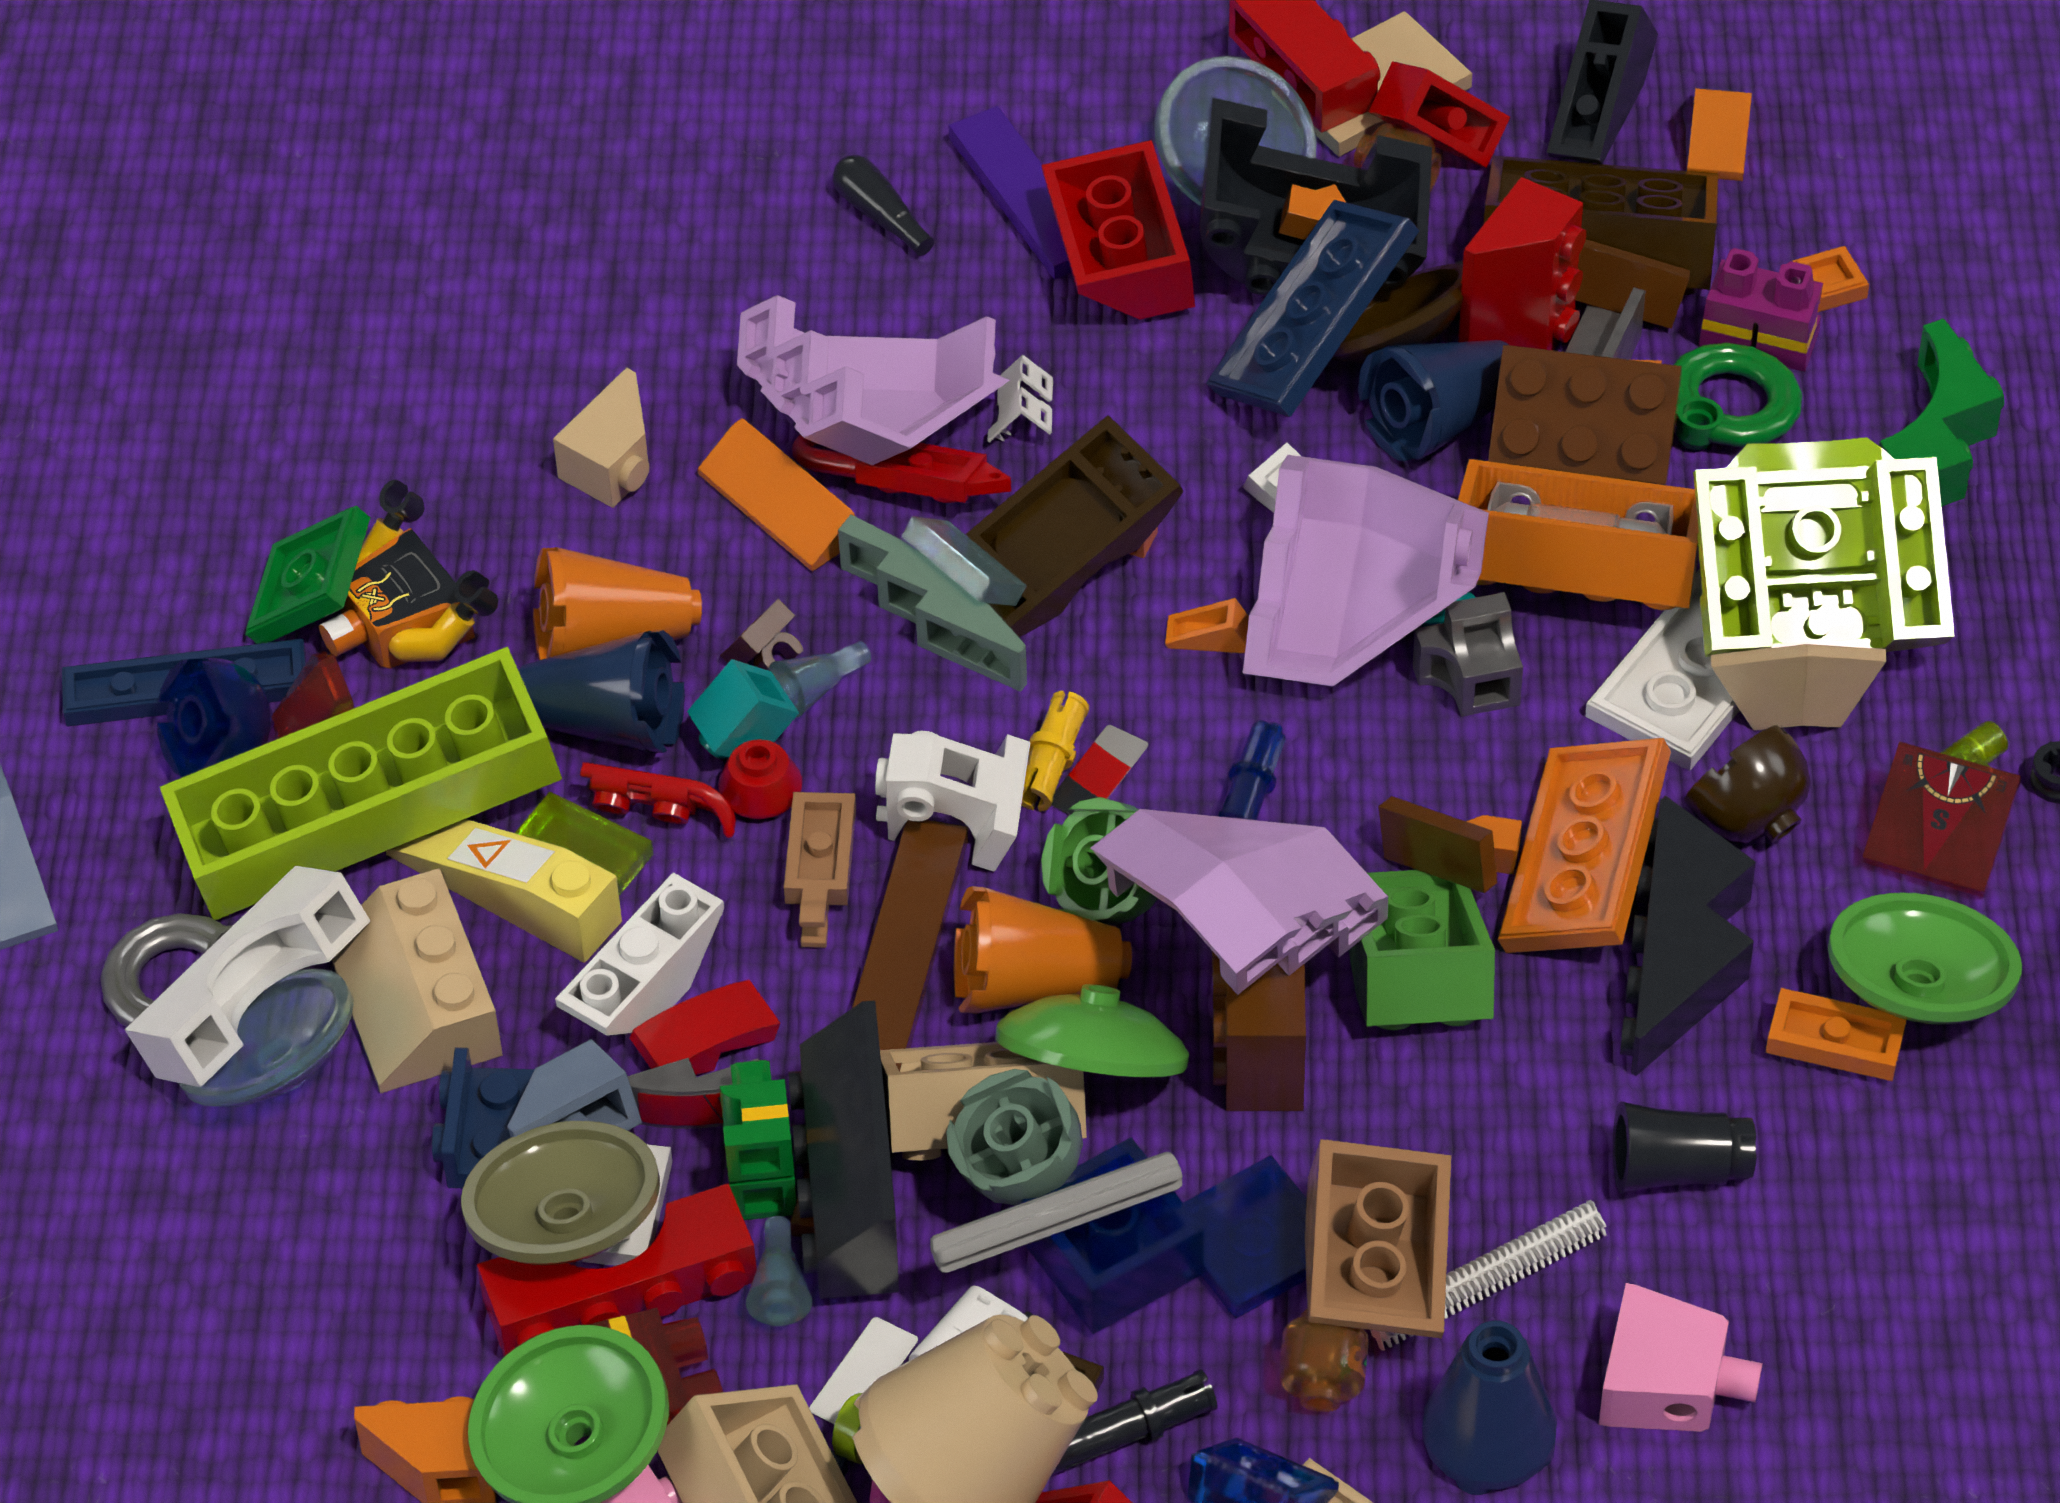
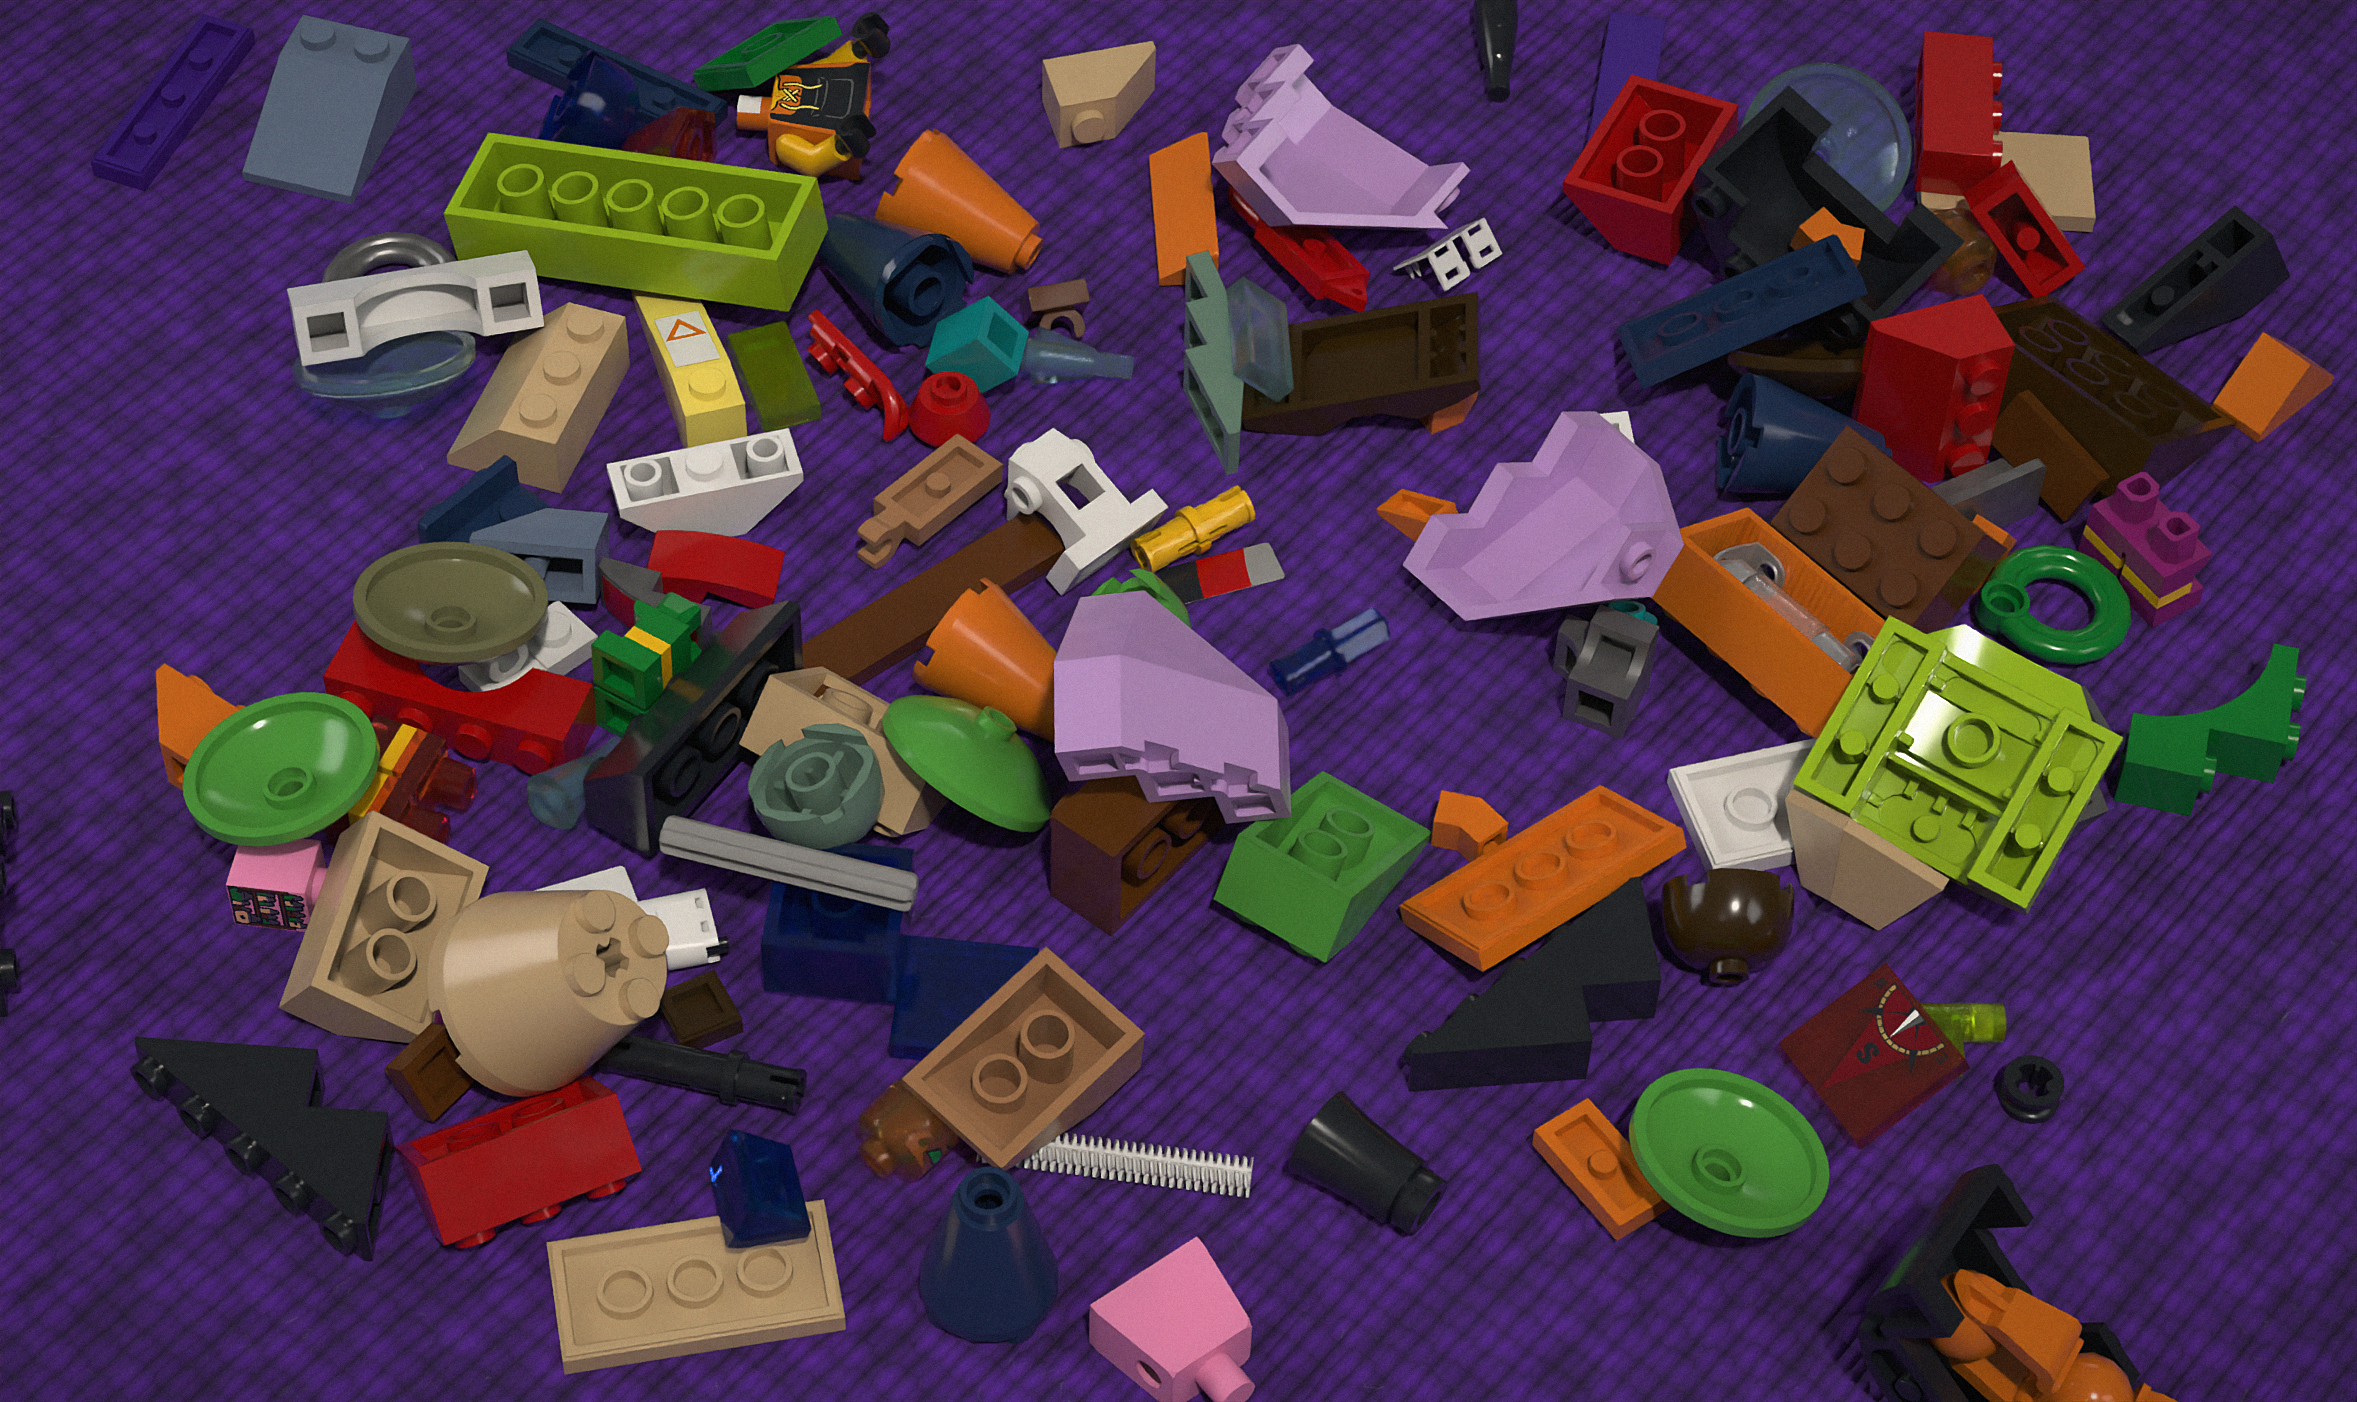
camera: 35 degrees right, 0 degrees up
(1438, 844) = (1415, 795): reddish brown tile -> none
(1840, 277) = (2249, 565): orange tile -> none

